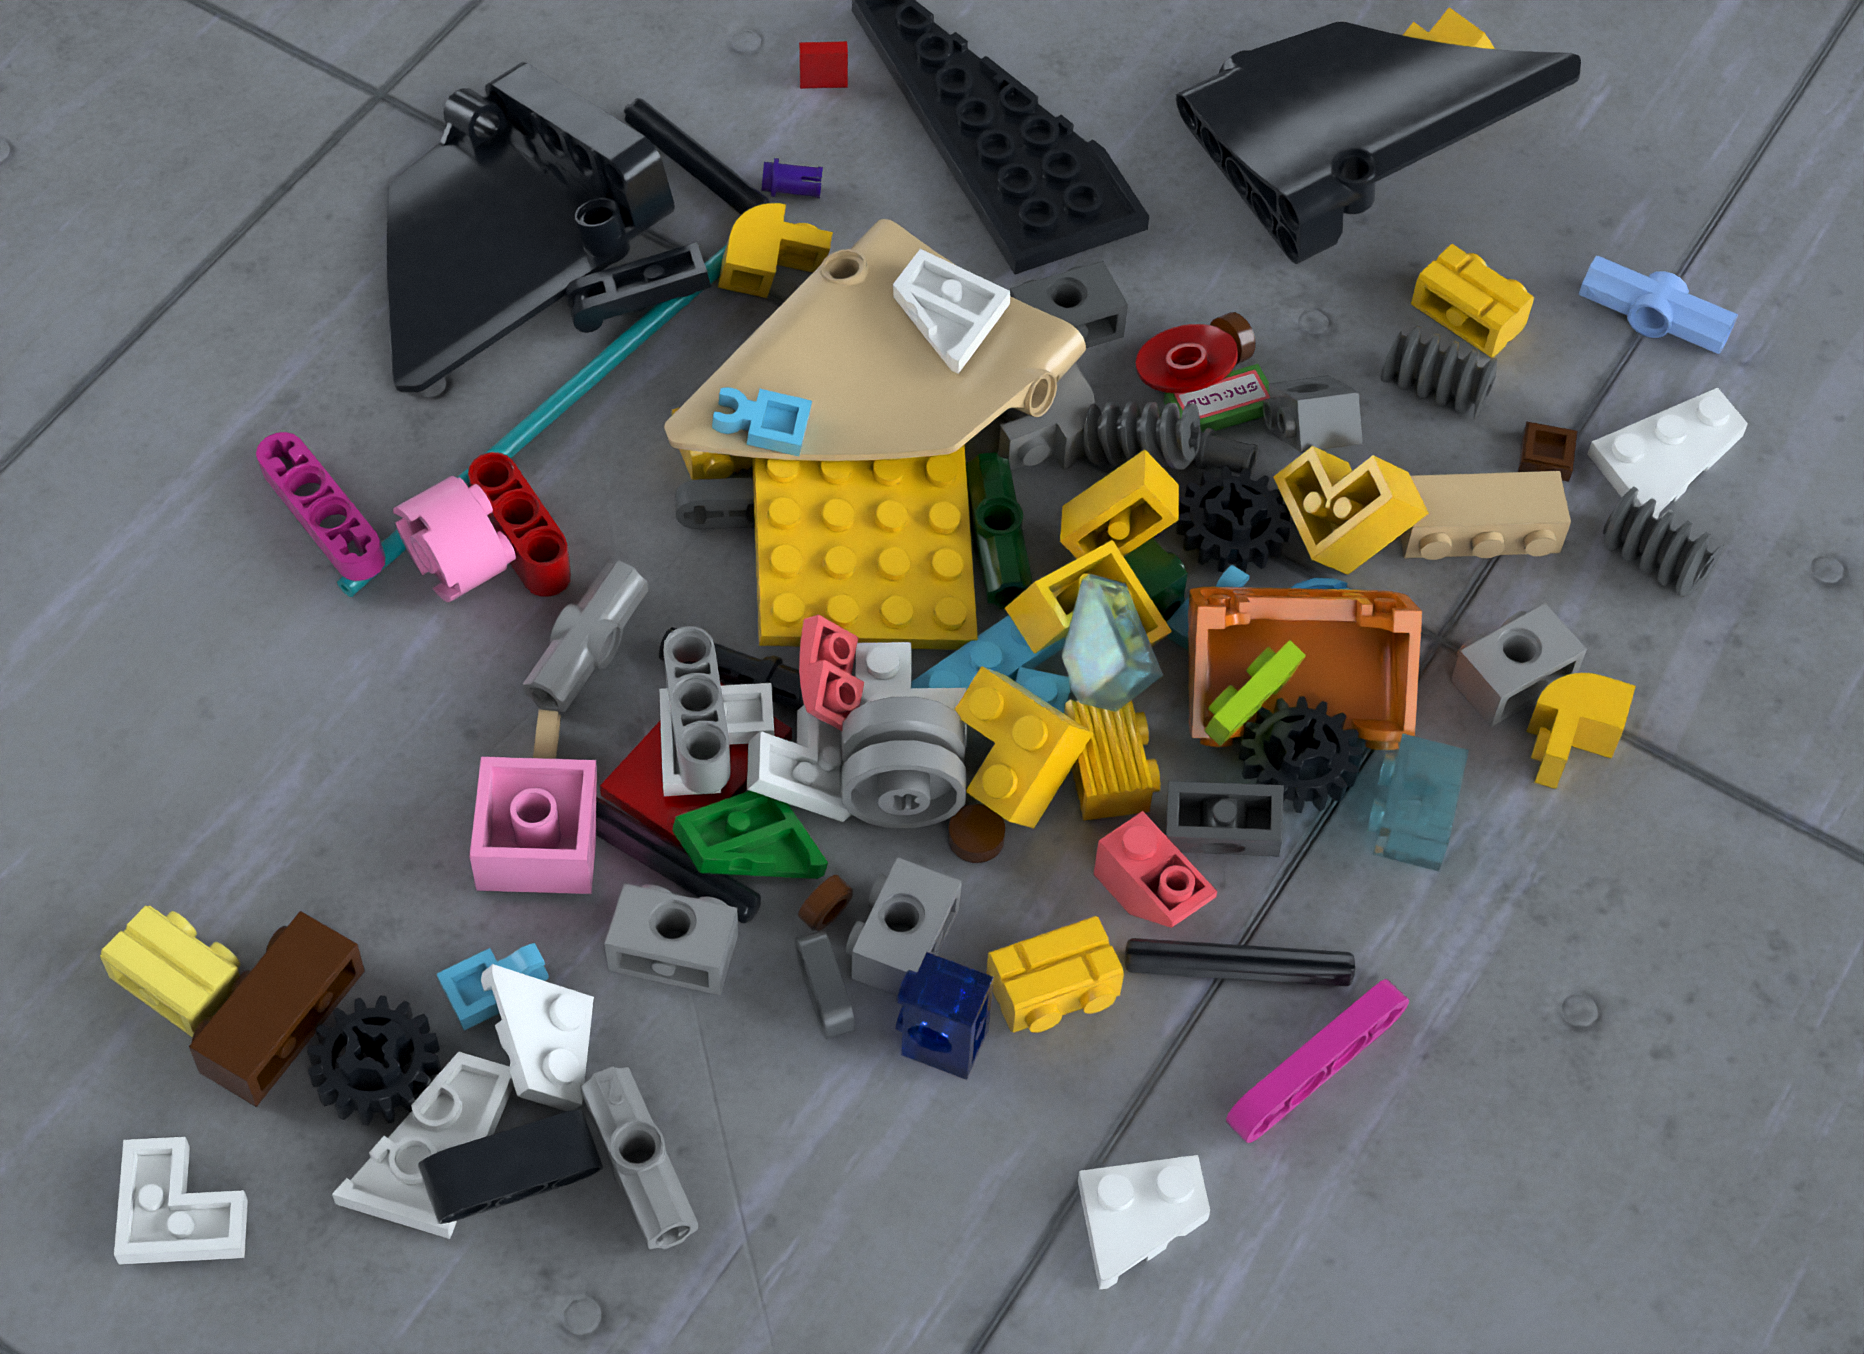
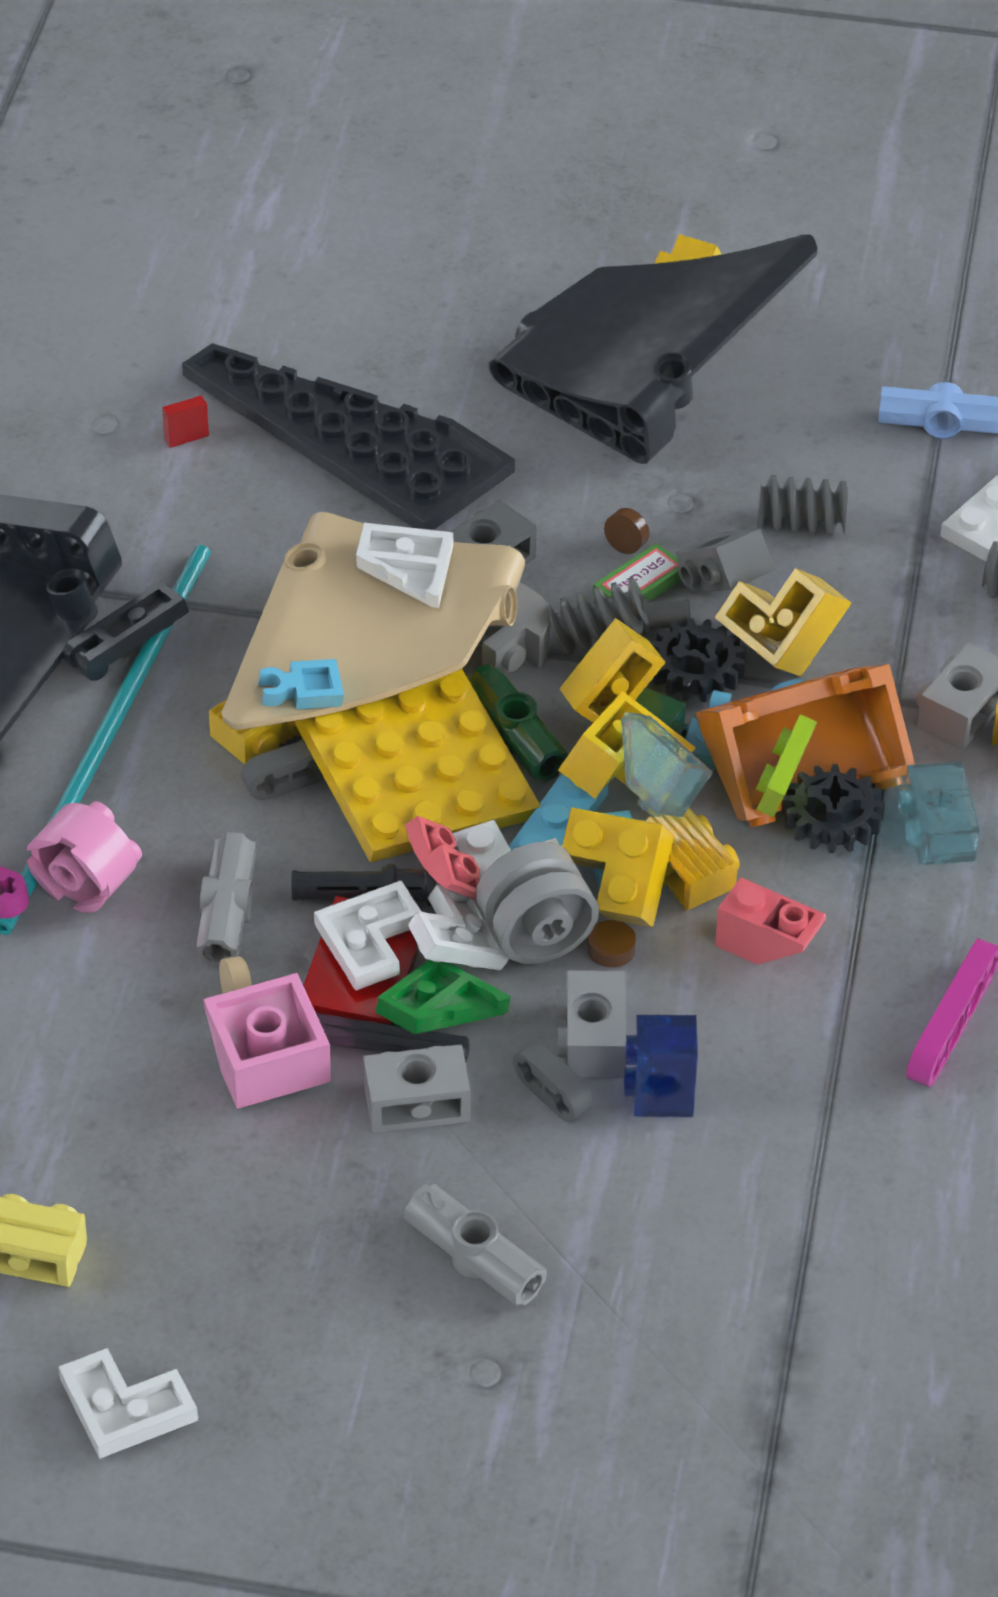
camera: 20 degrees left, 10 degrees down
(276, 1008) = (126, 1237): reddish brown brick -> none
(361, 1081) = (227, 1247): black gear -> none
(453, 1110) = (310, 1295): white wing -> none
(464, 986) = (284, 1170): medium azure plate -> none
(509, 1166) = (382, 1278): black beam -> none
(536, 537) = (159, 841): red beam -> none
(543, 1034) = (354, 1185): white wing -> none
(692, 156) = (135, 529): black axle -> none
(697, 731) = (359, 911): light grey beam -> none
(762, 242) = (219, 568): yellow brick -> none
(788, 179) = (205, 516): dark purple pin -> none
(825, 903) = (523, 1026): reddish brown tile -> none
(1055, 975) = (733, 1016): yellow brick -> none
(1139, 1210) = (871, 1158): white wing -> none
(1186, 358) = (599, 554): red dish -> none
(1225, 818) = (805, 864): dark grey brick -> none
(1239, 962) = (859, 967): black axle -> none
(1472, 300) = (800, 447): yellow brick -> none
(1489, 515) = (894, 598): tan brick -> none
(1547, 449) = (910, 542): reddish brown tile -> none

